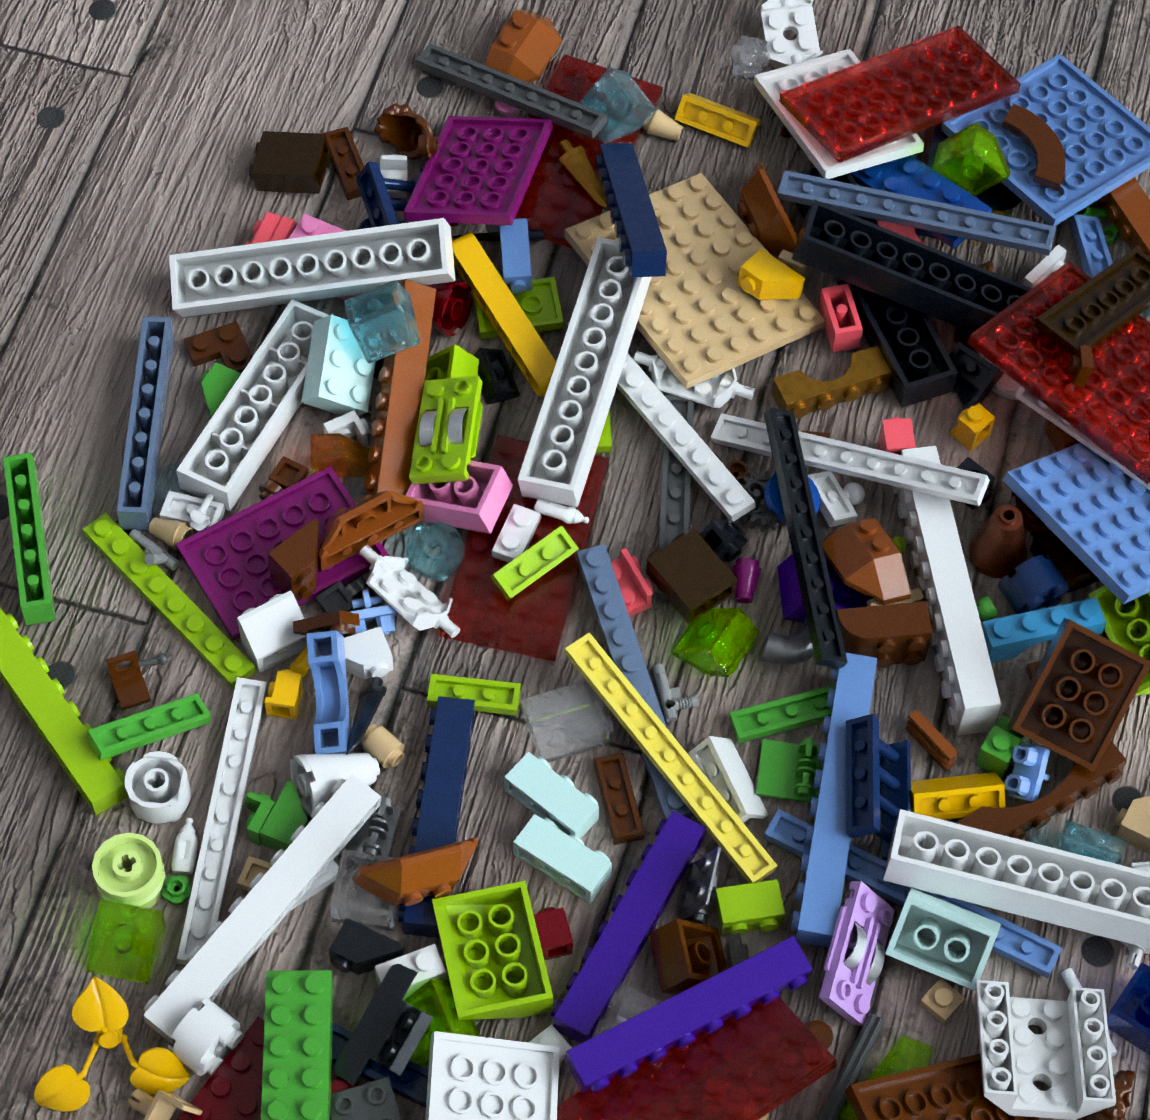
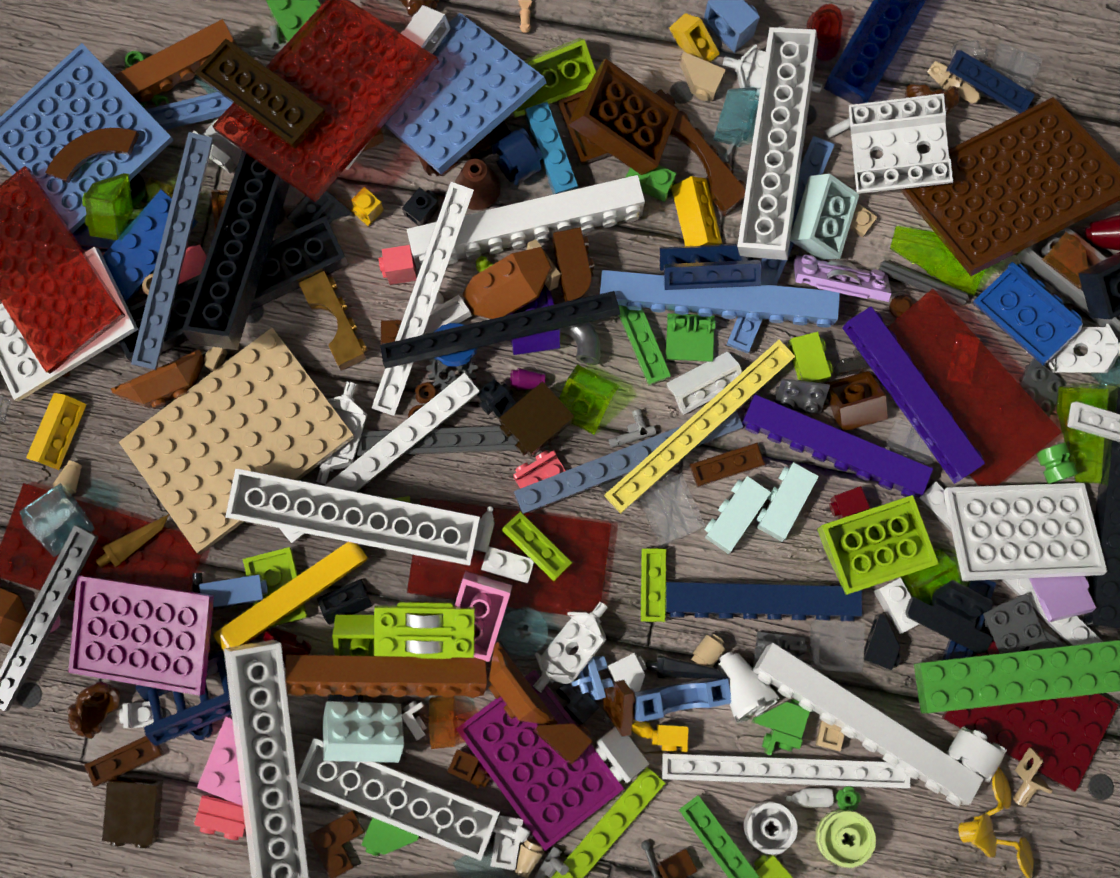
camera: 95 degrees left, 20 degrees up
(125, 941) = (898, 831): clear neon green slope -> none
(383, 321) = (335, 694): clear light blue slope -> none
(418, 874) = (831, 604): dark orange wedge -> none
(428, 144) = (115, 684): reddish brown plate -> none
(631, 210) = (192, 490): dark blue brick -> none
(769, 278) = (241, 373): yellow slope -> none
(841, 317) = (270, 314): coral brick -> none
(931, 740) = (654, 232): dark orange tile -> none
(986, 608) = (534, 193): bright green hinge -> none
(1027, 772) = (679, 160): light blue hips -> none
(1081, 365) = (336, 109): reddish brown plate -> none

